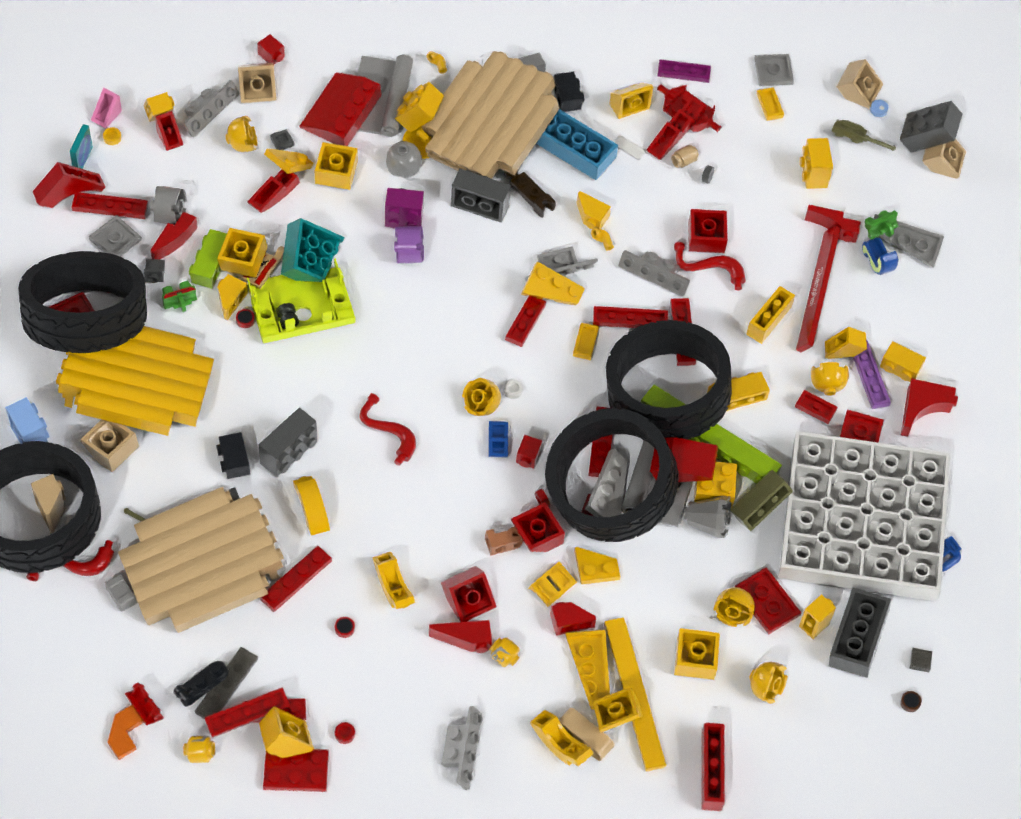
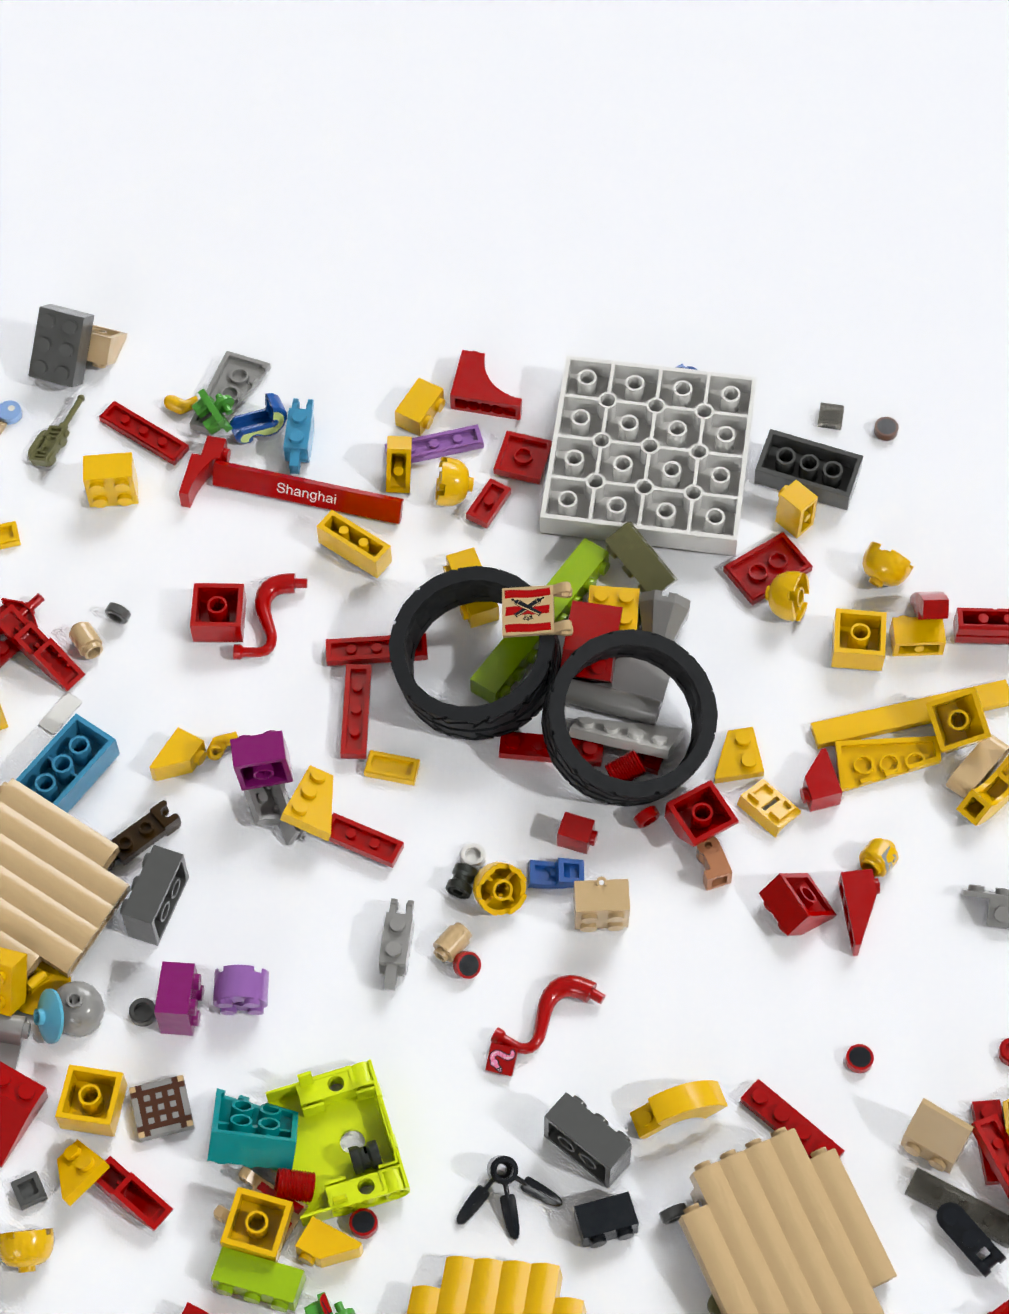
camera: 85 degrees left, 0 degrees up
(269, 391) = (508, 1200): none -> black plant
(270, 275) = (294, 1185): none -> red piece
(276, 666) = (936, 1136): none -> tan slope
(332, 208) = (161, 1108): none -> tile
(355, 399) = (502, 1059): none -> red tile
(392, 581) = (795, 996): yellow arch -> none
(394, 137) = (49, 1016): none -> medium azure dish
(426, 380) = (466, 964): none -> tile
(443, 337) = (396, 943): none -> light grey hinge
(443, 371) = (452, 942): none -> tan brick
(465, 459) = (601, 905): none -> tan brick
(496, 377) = (461, 883): none -> pearl dark grey wheel
(577, 246) = (261, 760): none -> magenta brick
(579, 483) = (626, 767): none -> red piece
(656, 270) = (277, 678): light grey bracket -> none
(691, 400) = (531, 611): none -> tan flag
(704, 701) = (917, 636): none -> yellow brick
(725, 702) = (930, 605): none -> red slope
(867, 189) = (144, 433): none -> red tile
(868, 282) = (299, 435): none -> dark azure hinge
(895, 205) = (179, 405): none -> yellow arm

